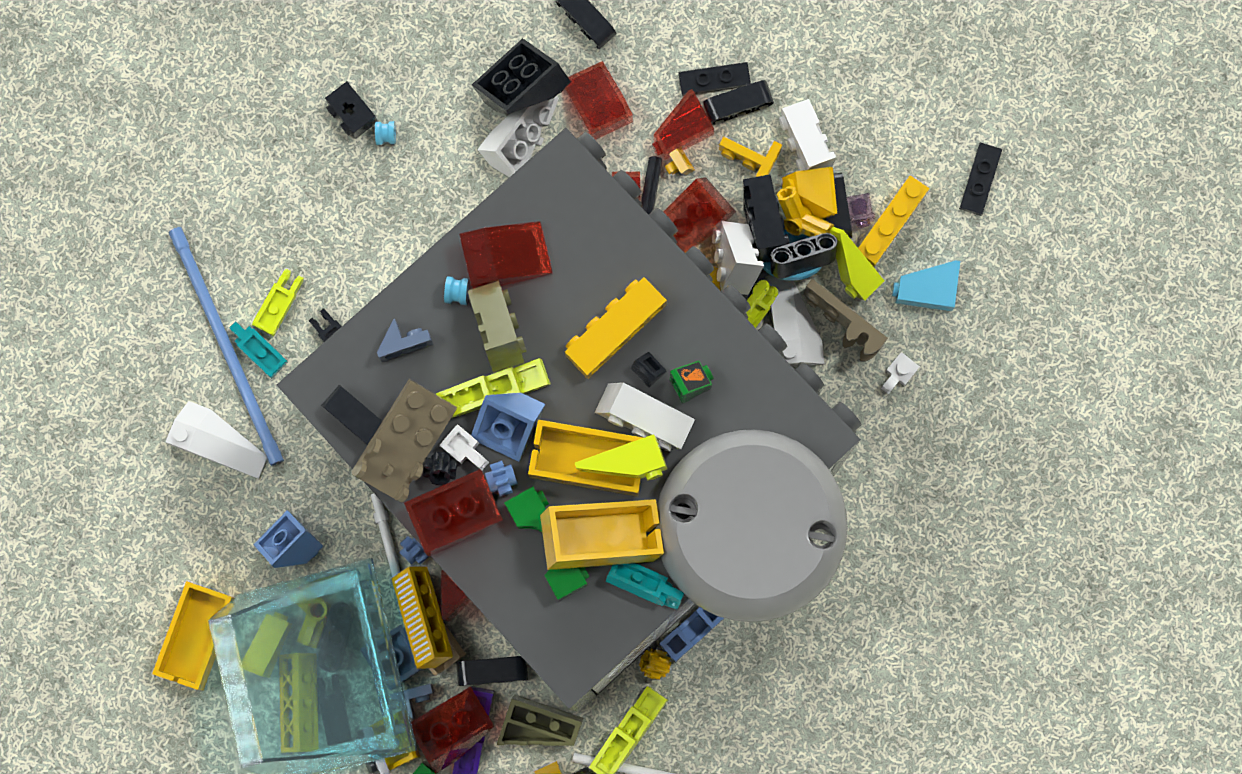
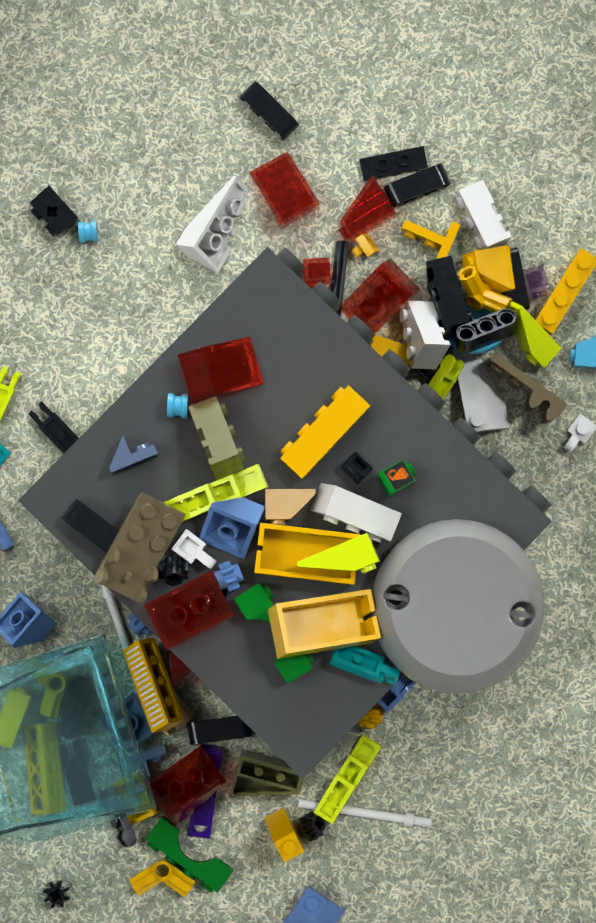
camera: 10 degrees left, 5 degrees up
(521, 79) = (212, 176): black slope -> none
(569, 402) = (285, 503): none -> tan slope

